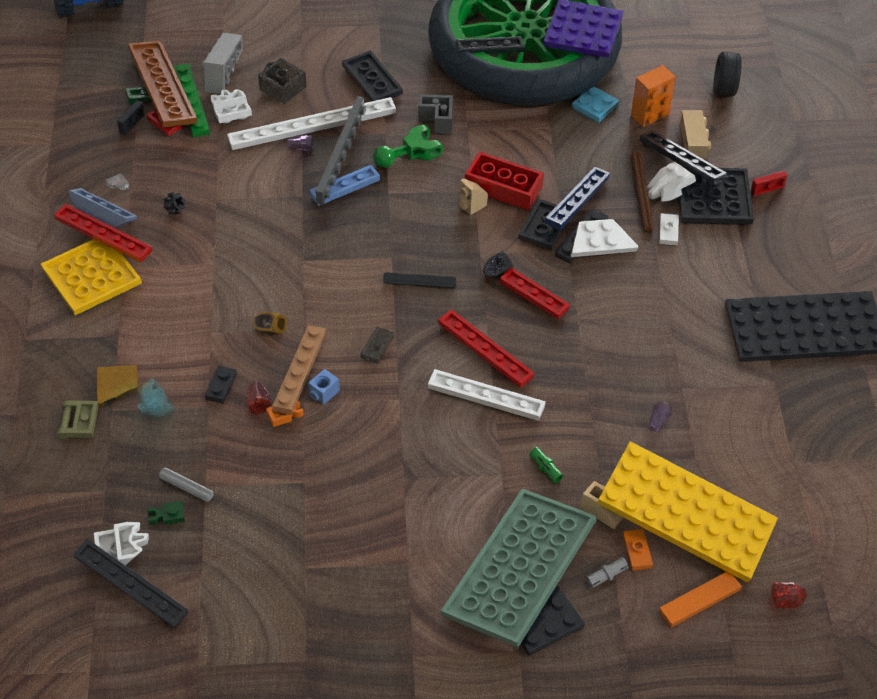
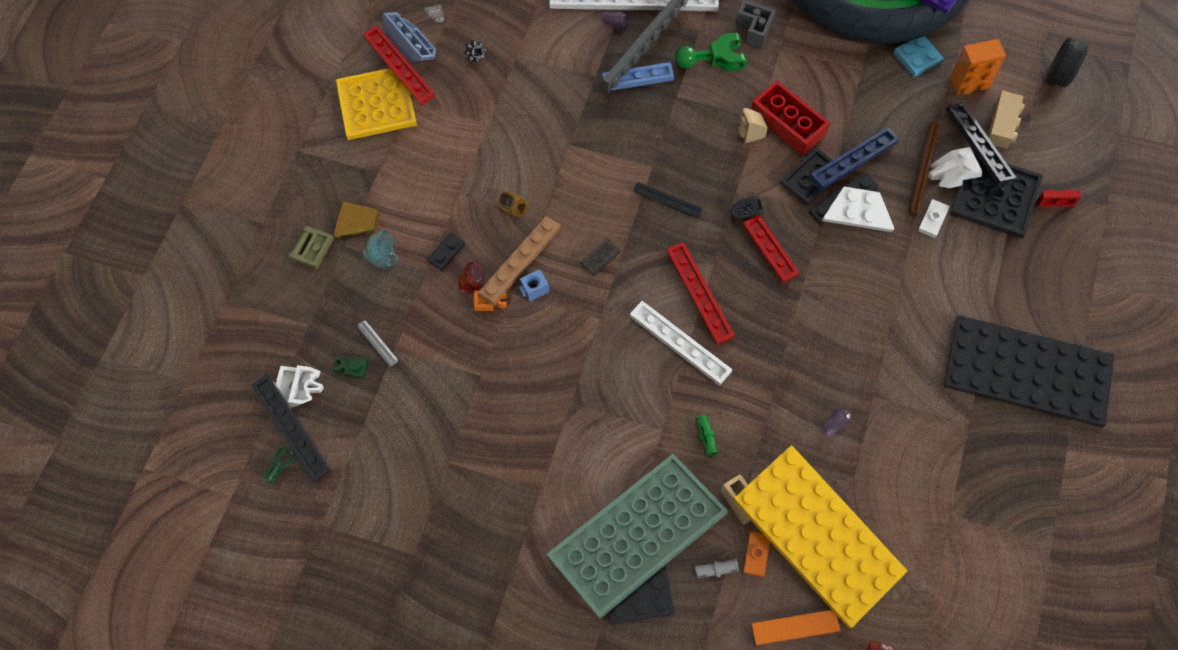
camera: 25 degrees right, 15 degrees up
(129, 625) = (277, 465): none -> clear green connector

